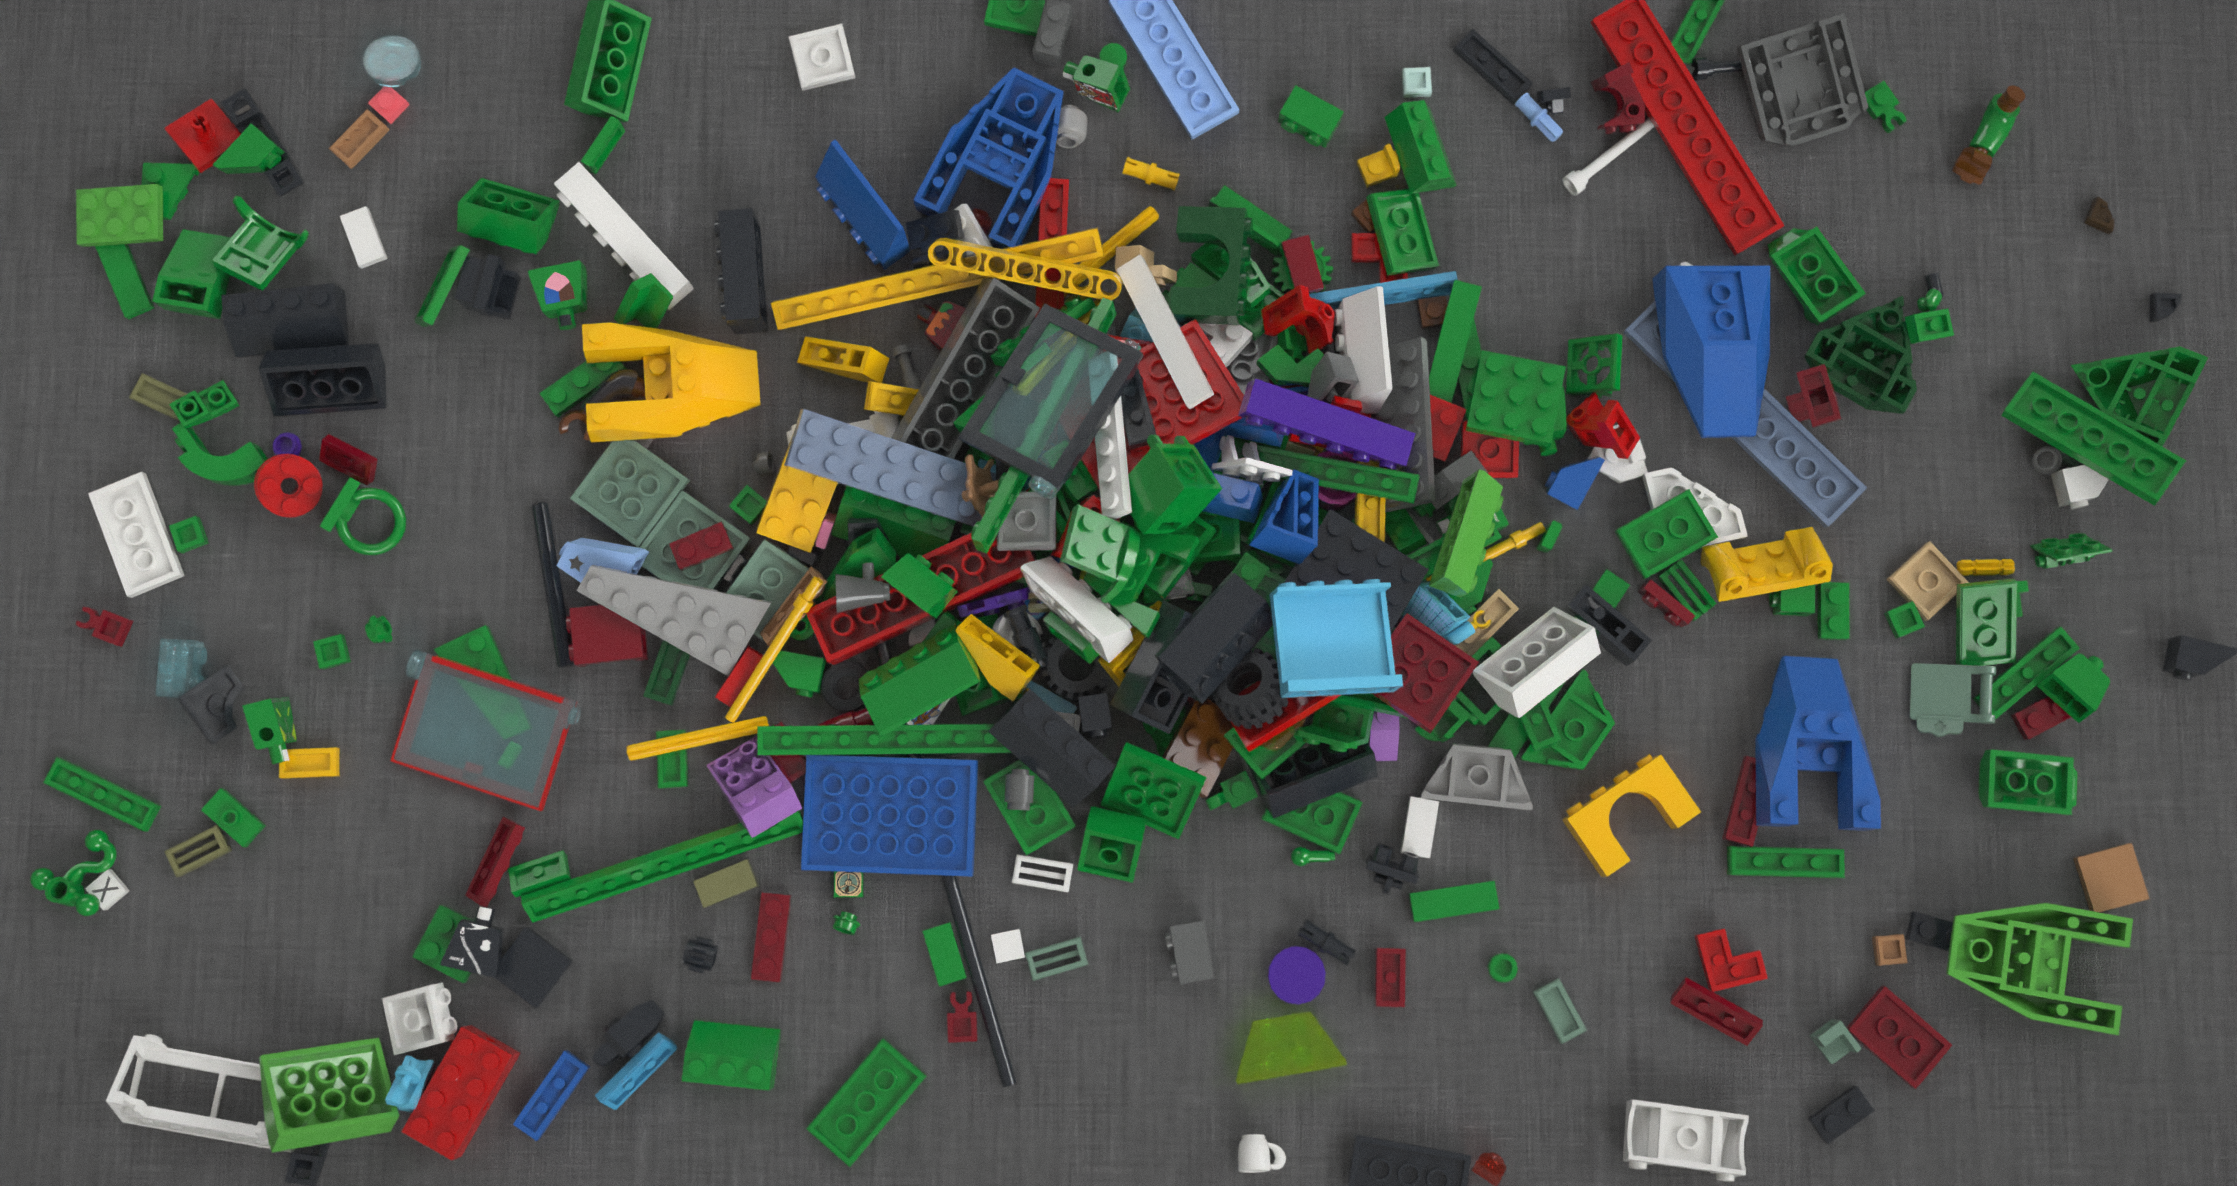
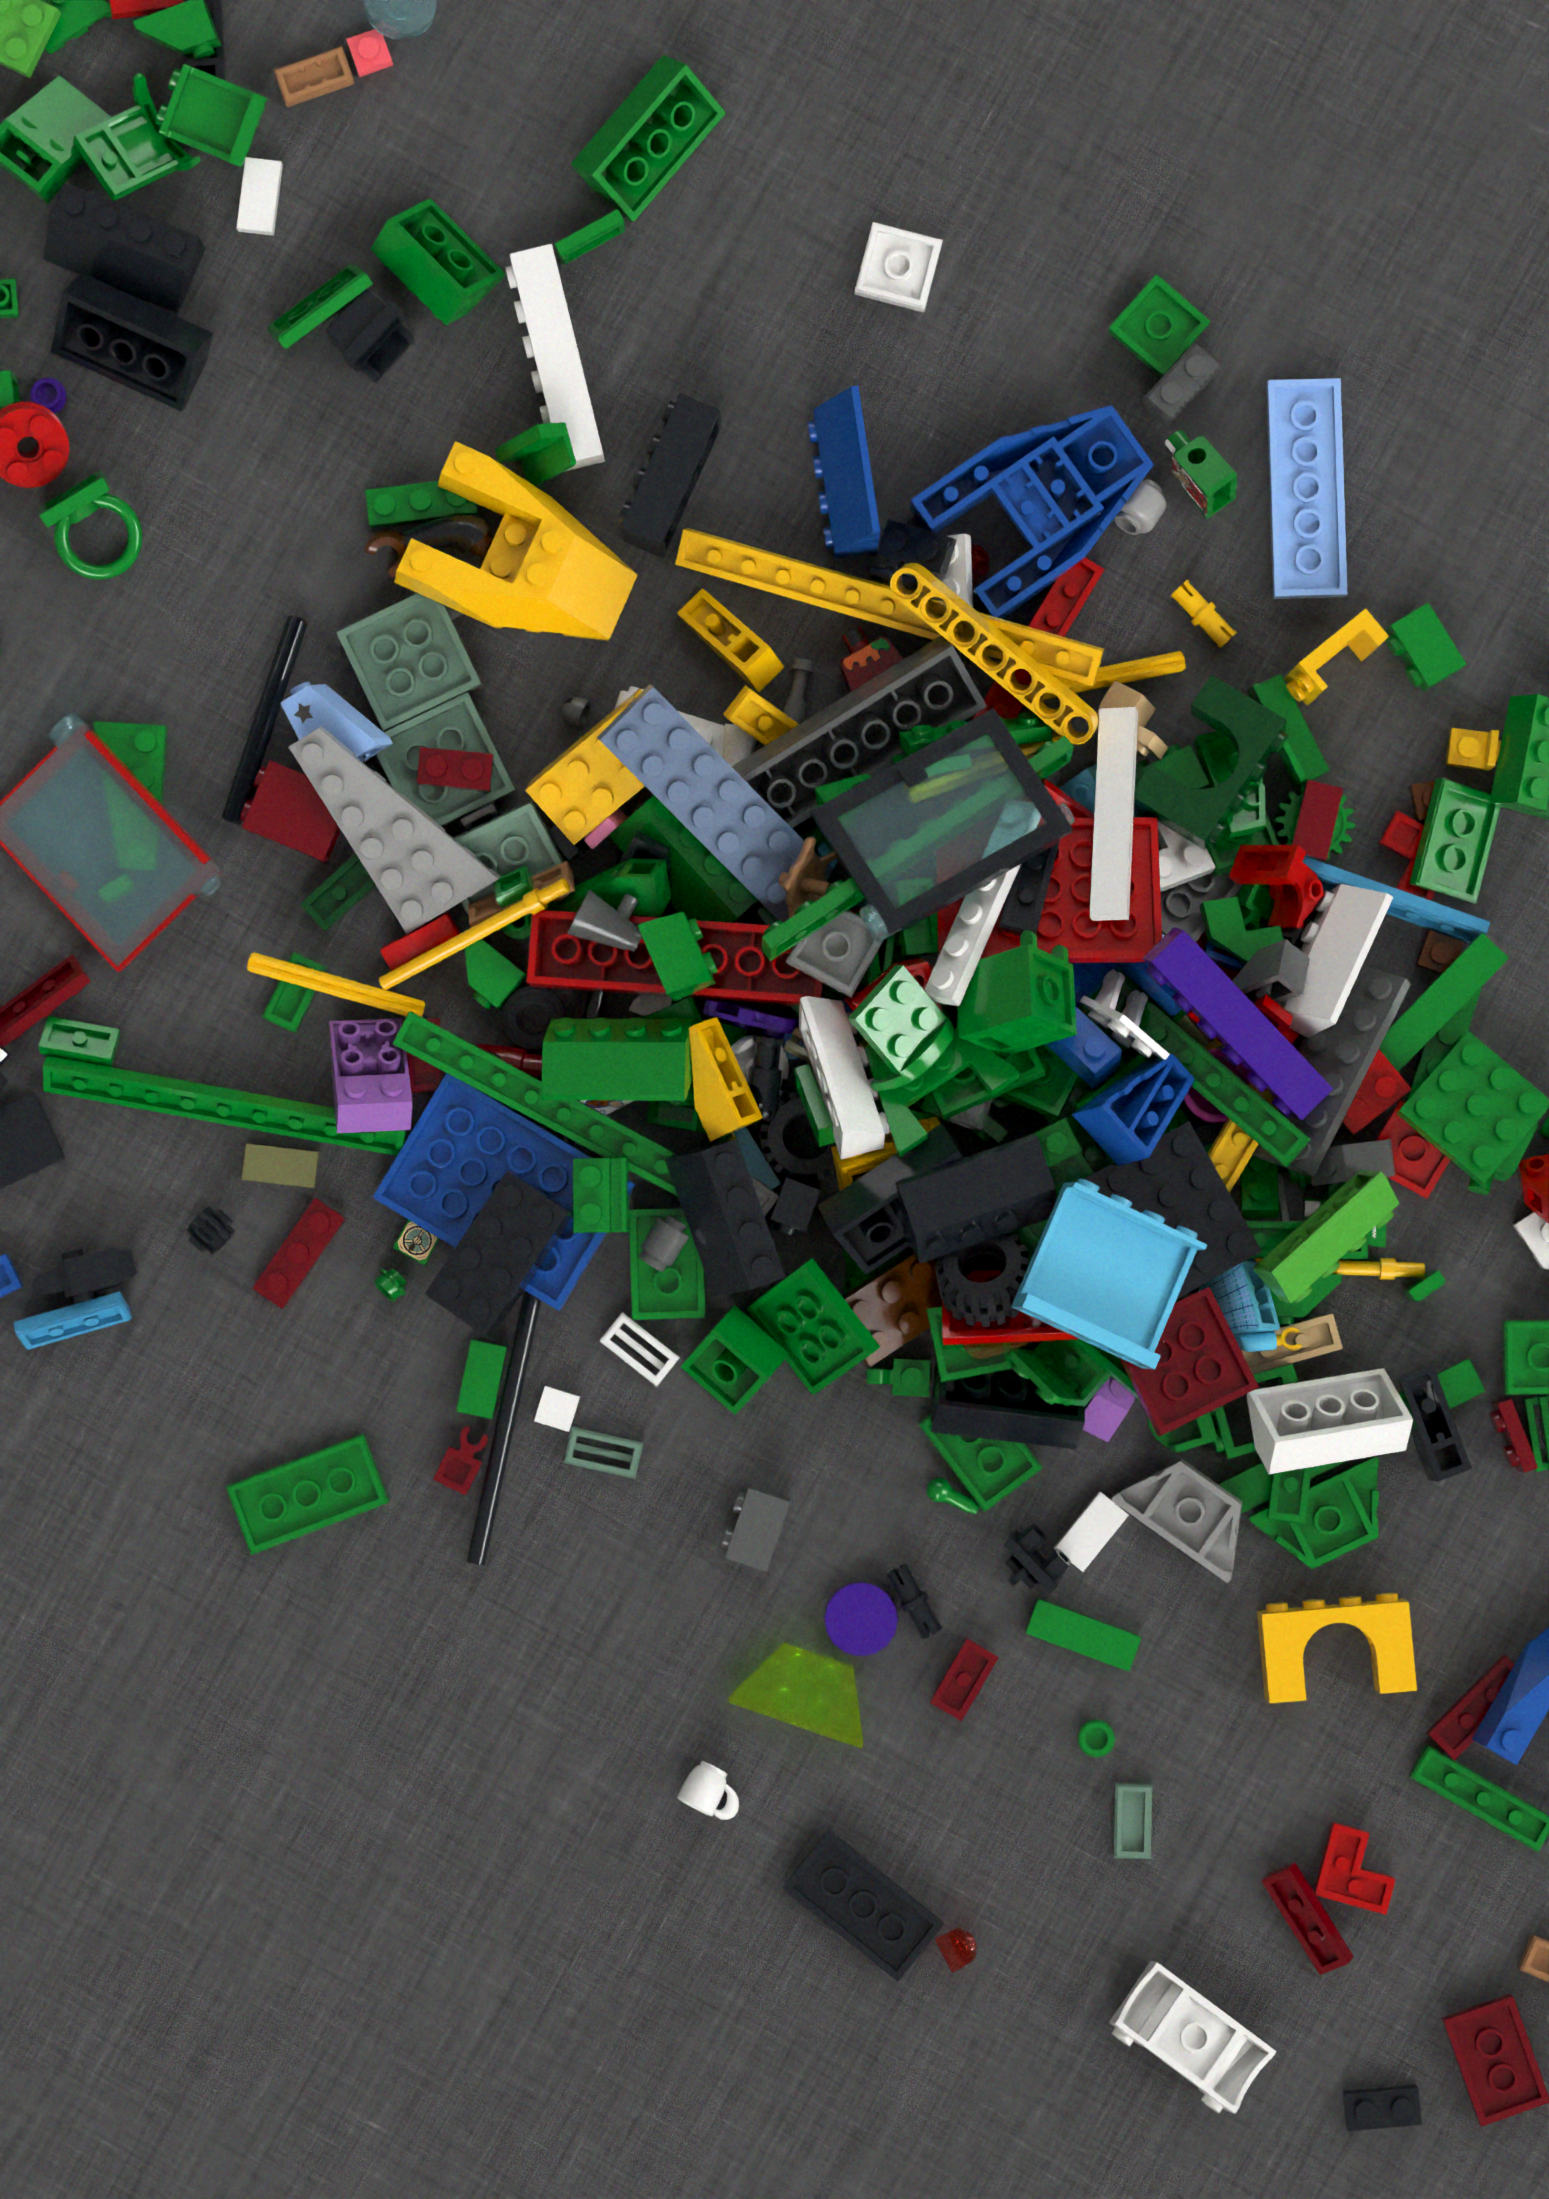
camera: 30 degrees right, 5 degrees up
(300, 199) = (211, 114): none -> green panel
(348, 459) = (109, 449): dark red plate -> none
(378, 629) = (43, 665): green plate -> none
(561, 291) = (451, 385): green torso -> none
(731, 1055) = (186, 1360): green slope -> none
(748, 505) = (534, 750): green plate -> none
(783, 602) = (513, 886): none -> green tile
(909, 859) = (499, 1254): none -> black brick
(957, 780) = (600, 1195): none -> green plate
(1114, 54) = (1237, 450): green tile -> none
(1262, 131) = (1360, 634): none -> yellow panel
(1573, 481) = (1487, 1238): blue slope -> none
(1834, 1040) = (1421, 2024): sand green panel -> none

